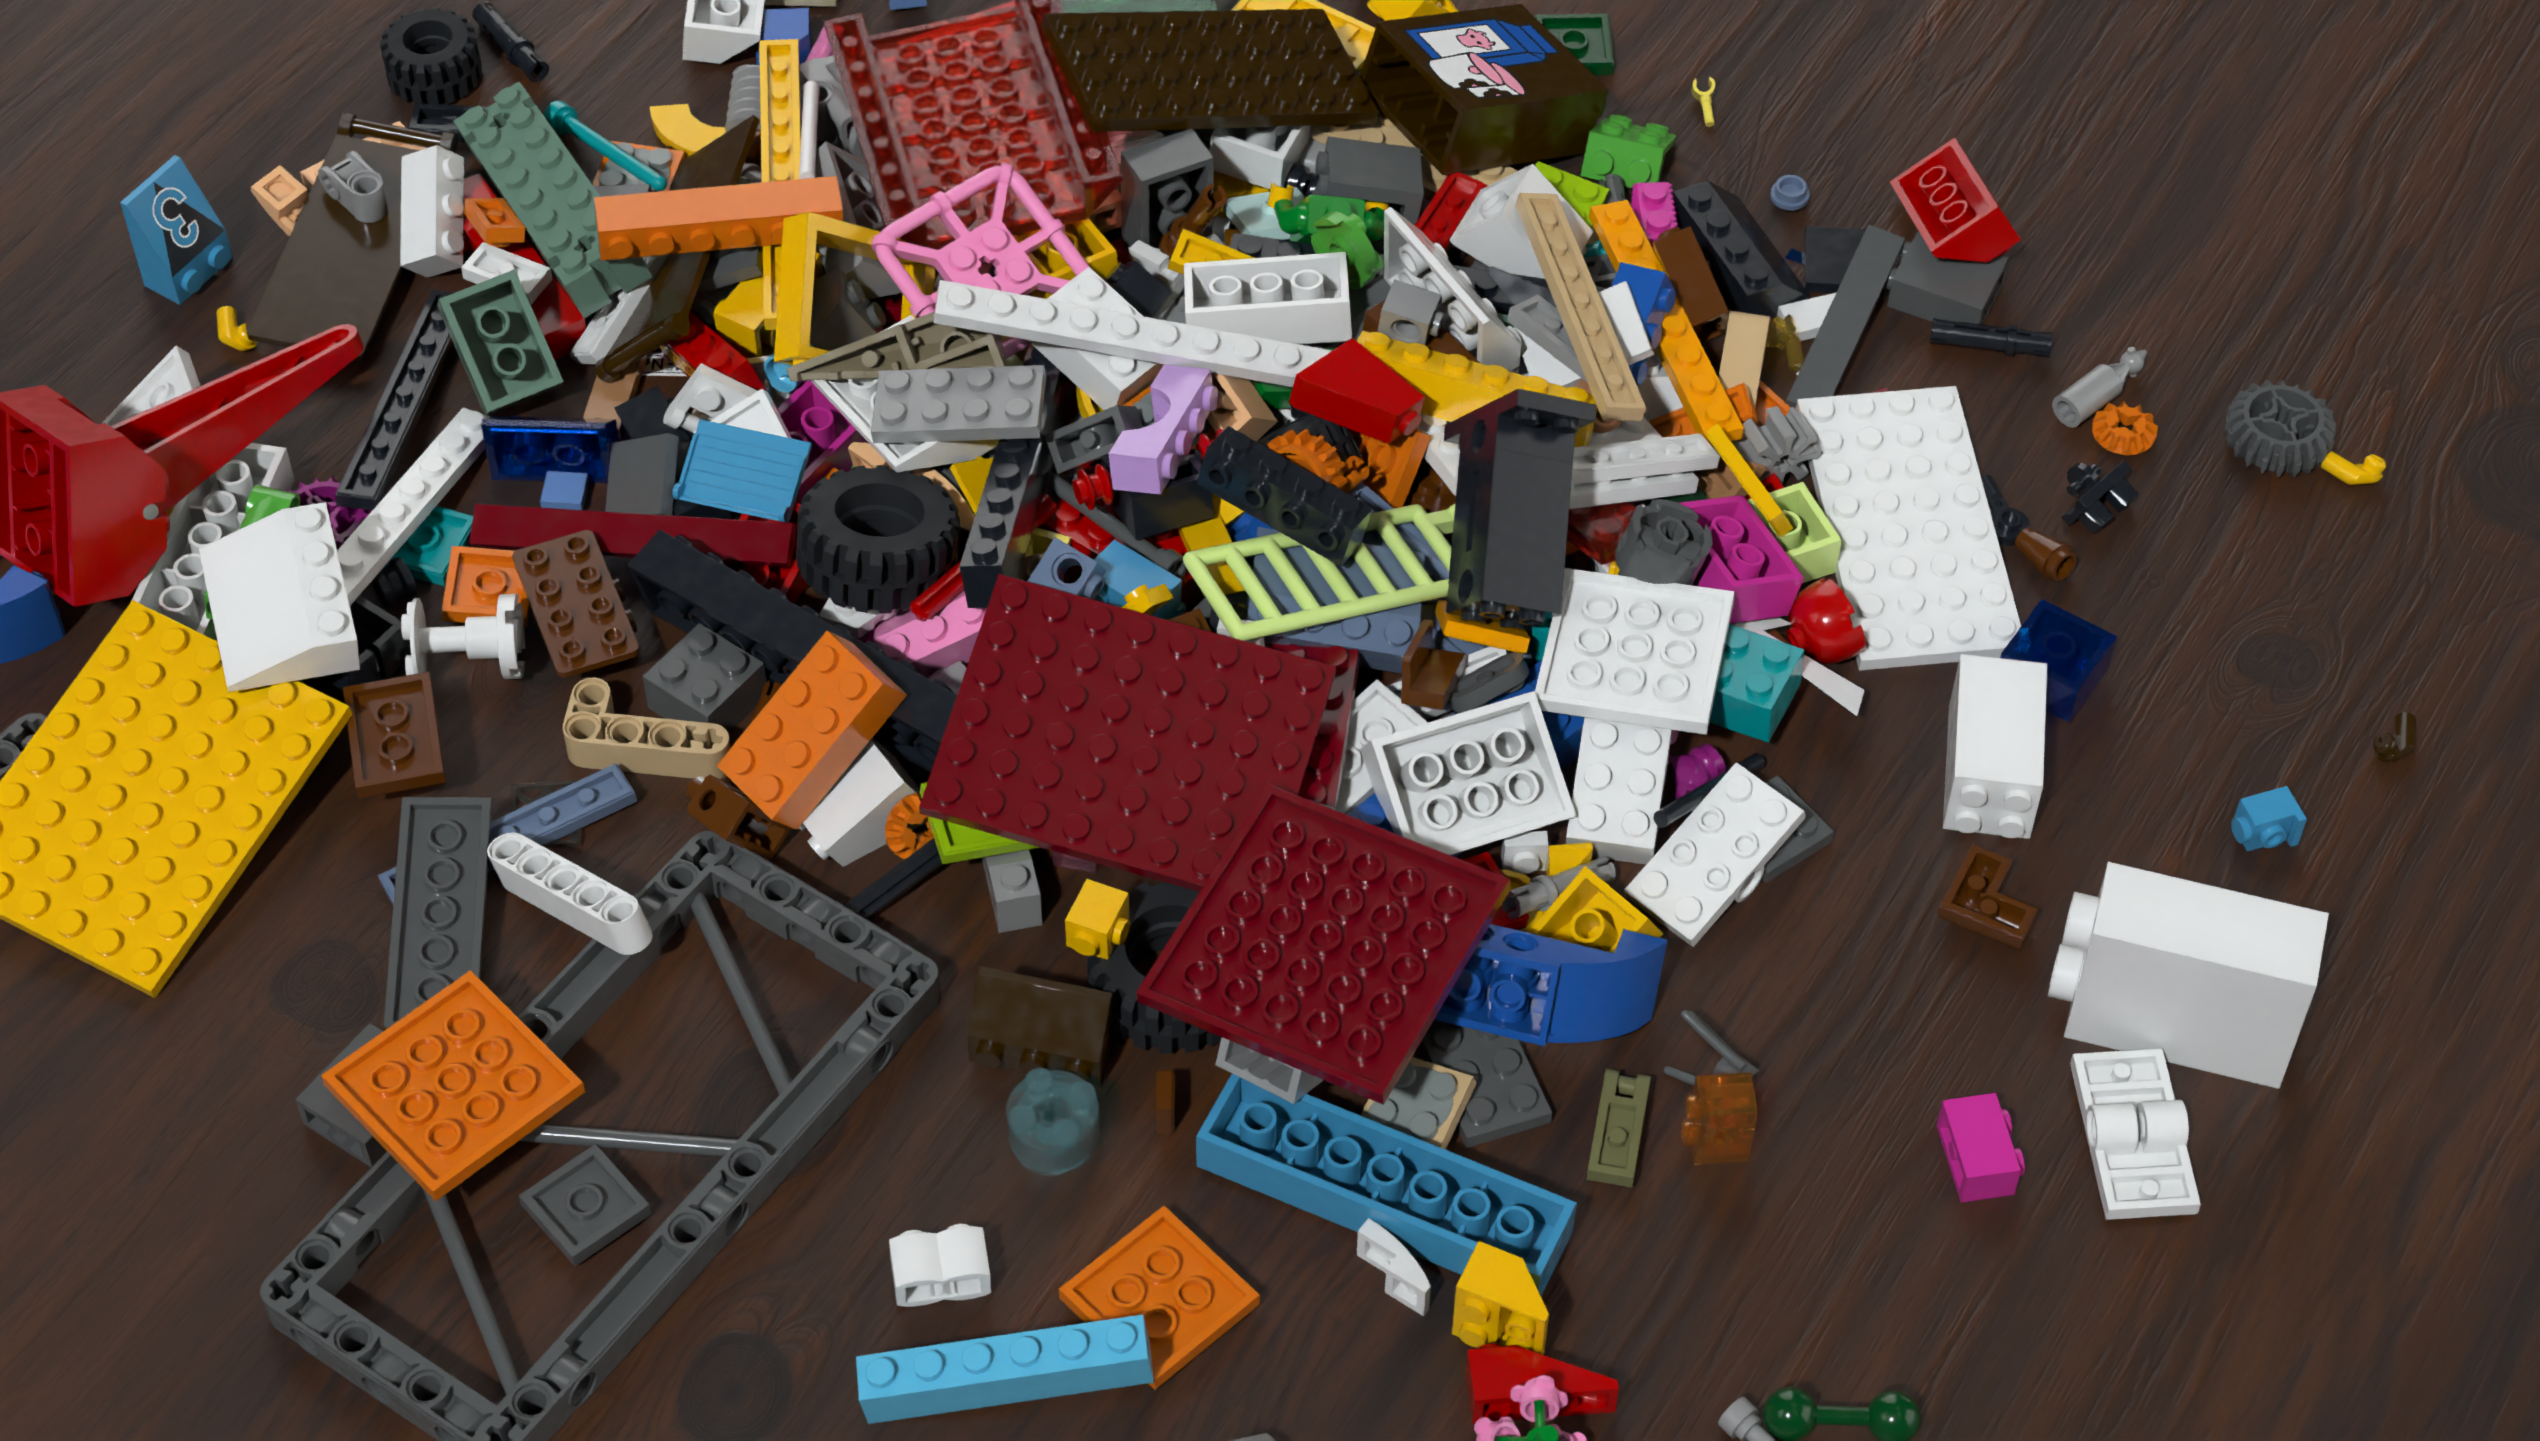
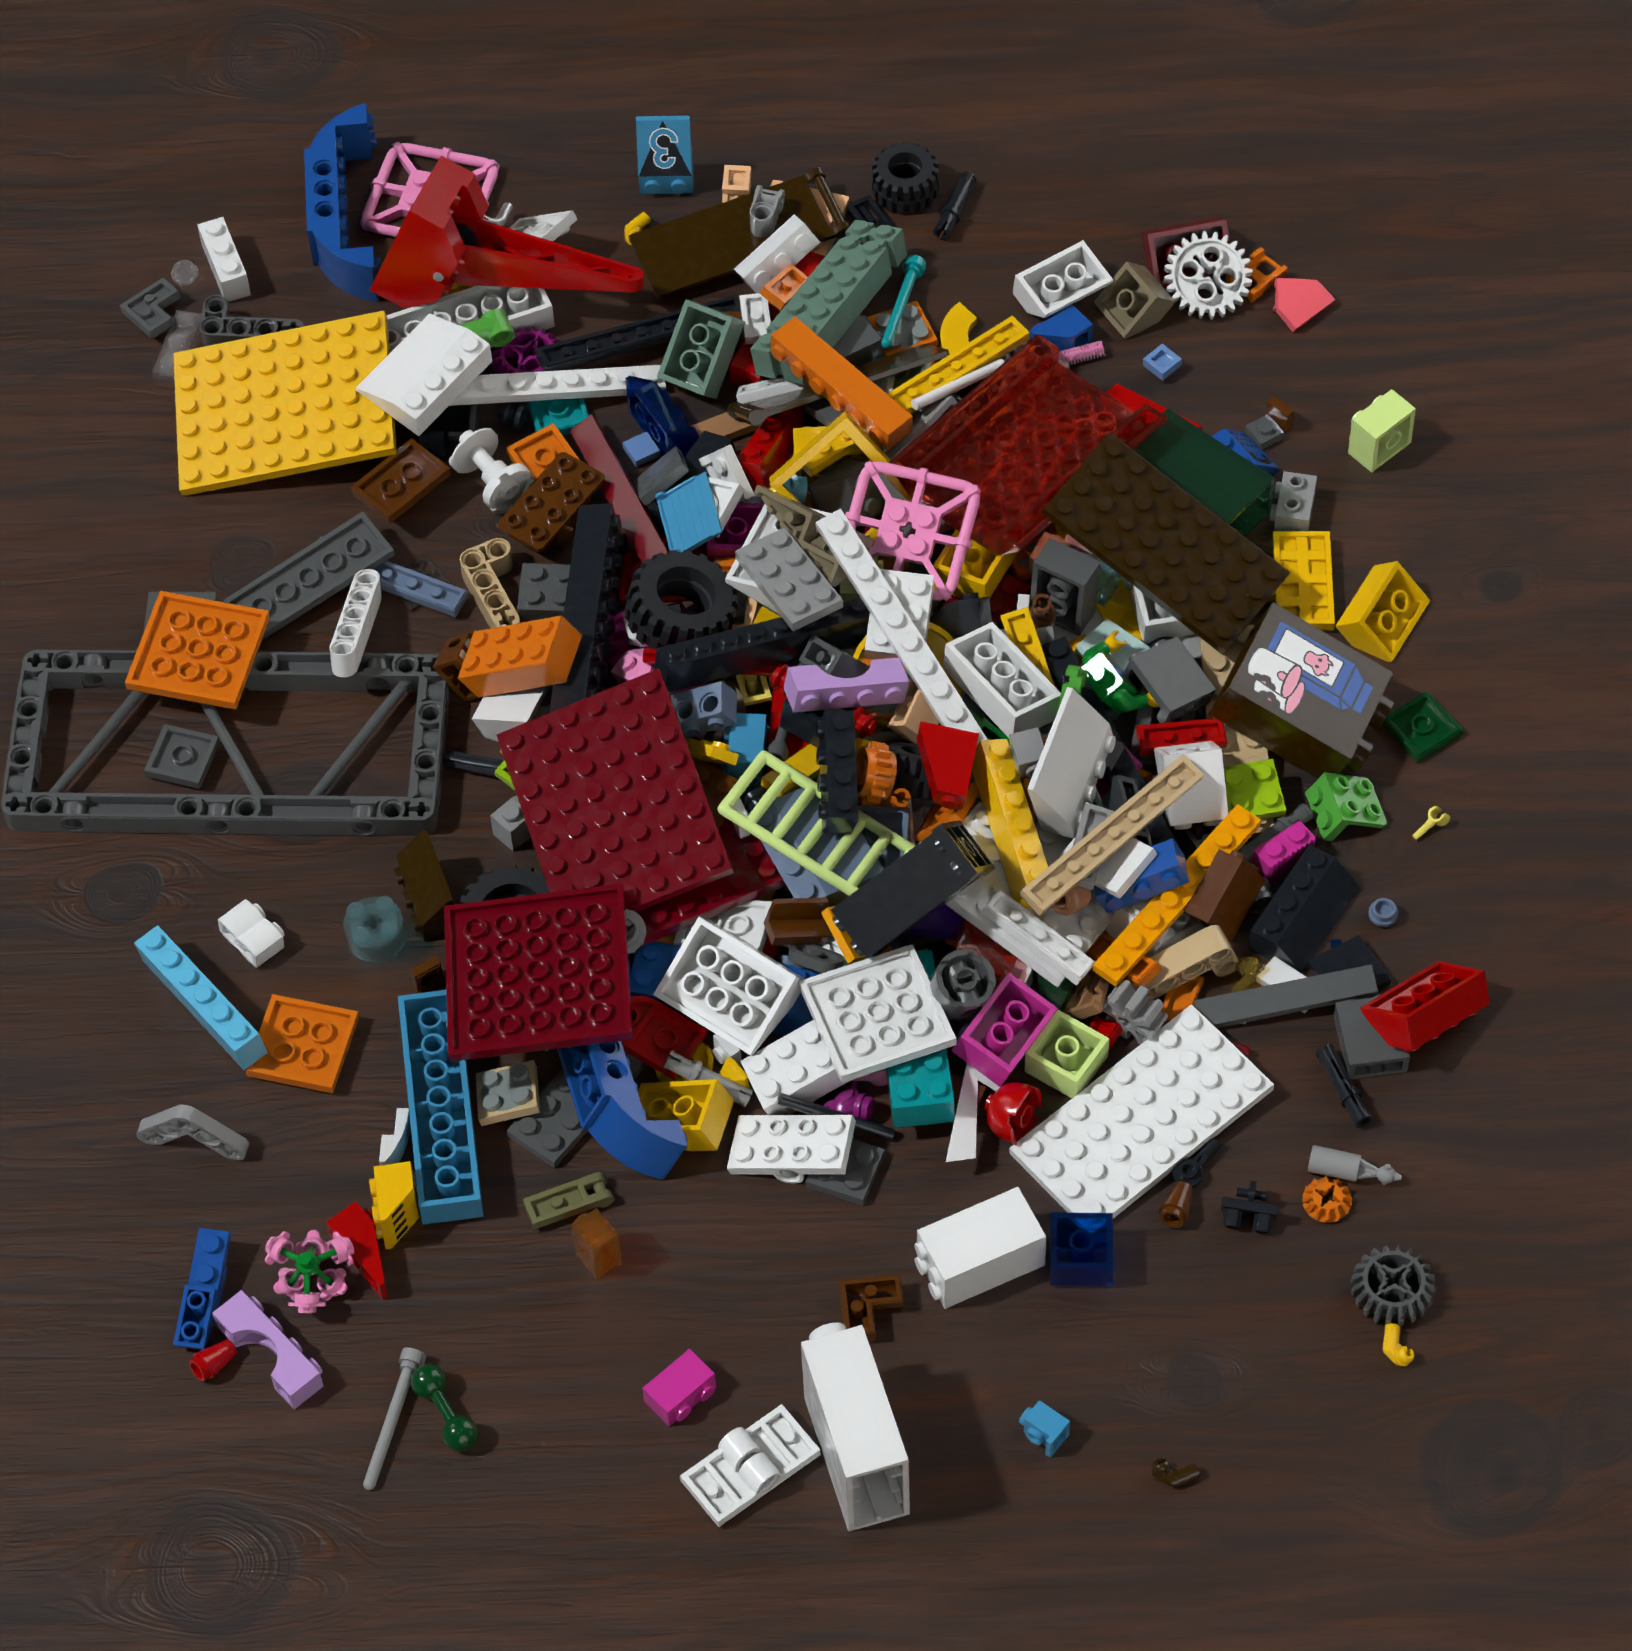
camera: 60 degrees right, 5 degrees up
(1098, 920) = (491, 863): yellow brick -> none
(1730, 1061) = (645, 1239): dark grey plant -> none
(1748, 480) = (1073, 1005): yellow tile -> none

